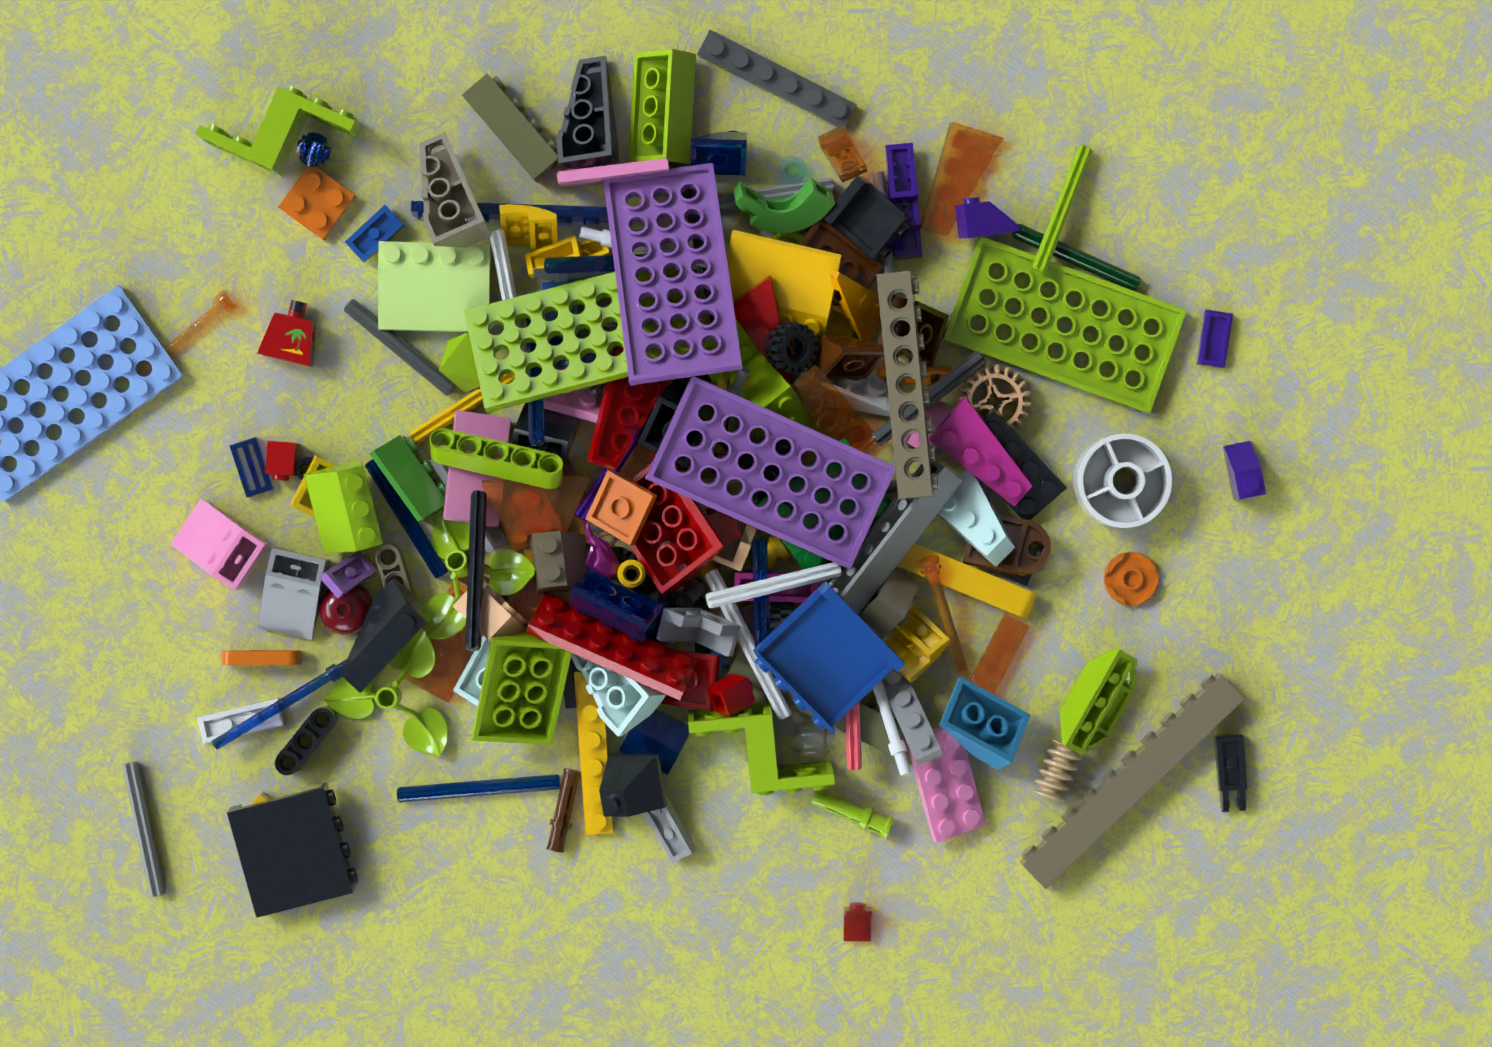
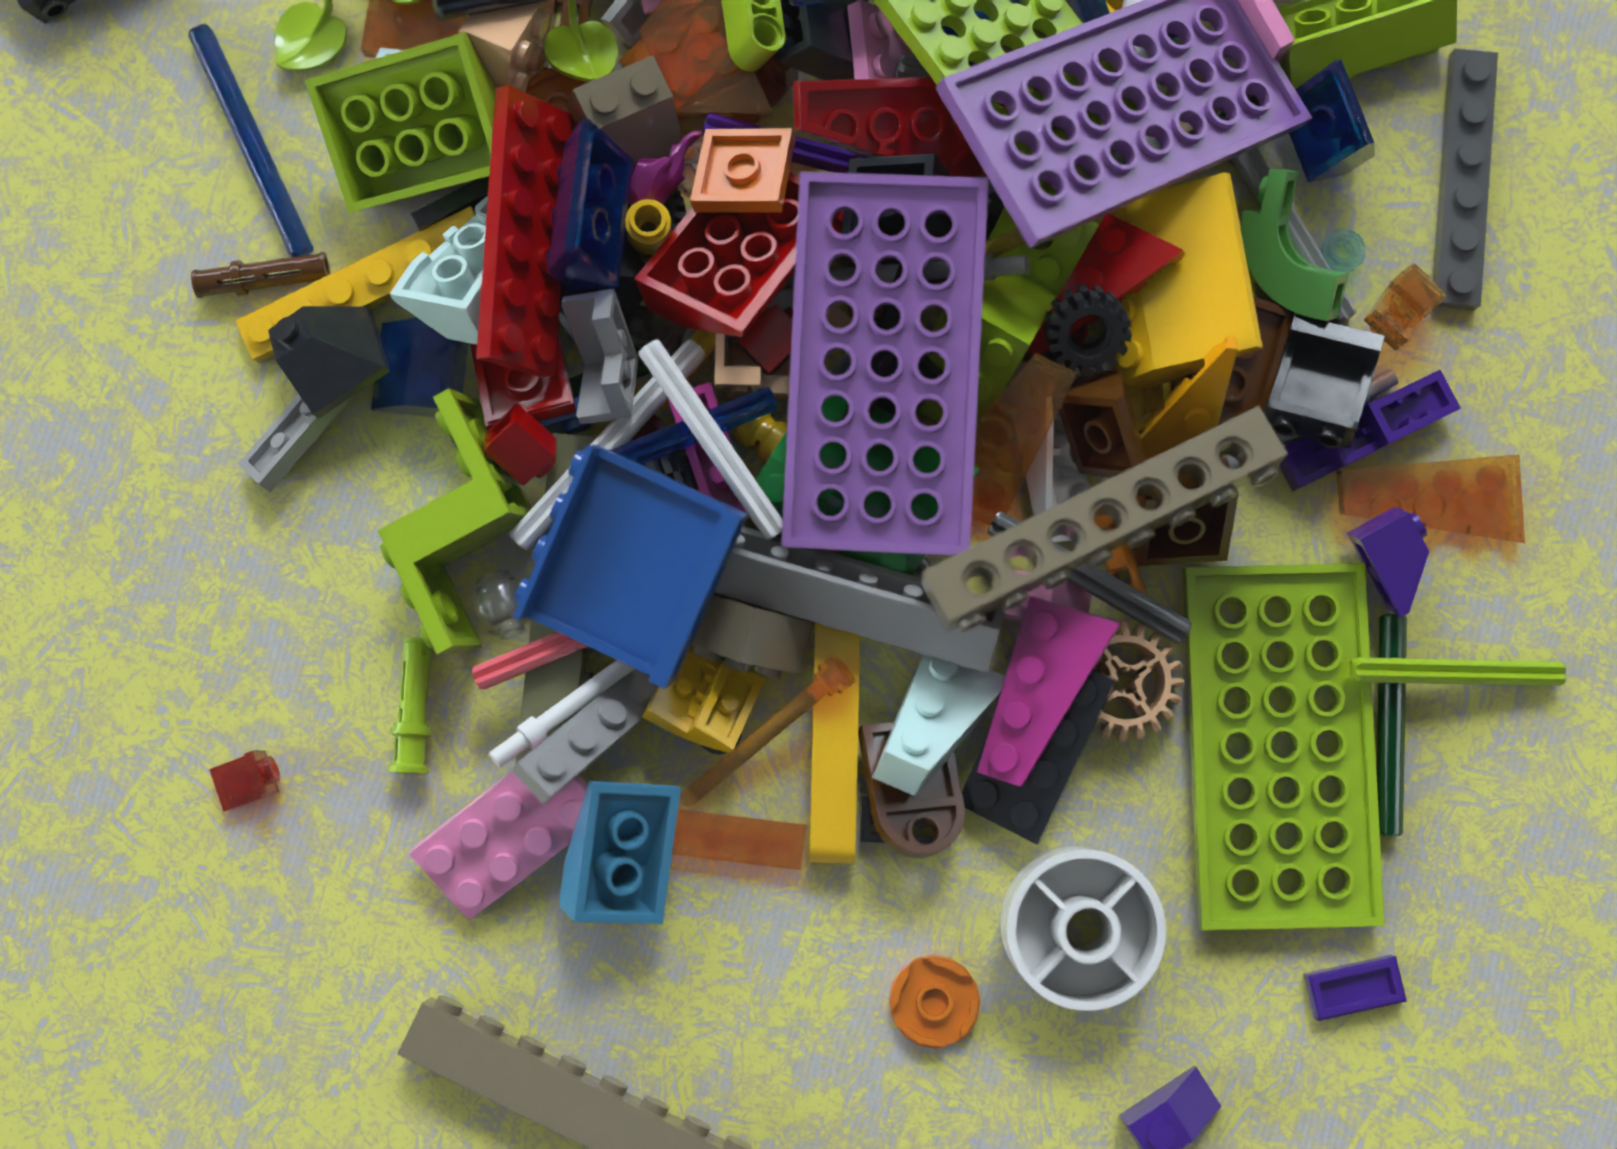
camera: 70 degrees right, 5 degrees down
(1057, 771) = (590, 1002): tan piece -> none
(1097, 700) = (724, 1021): lime wedge -> none

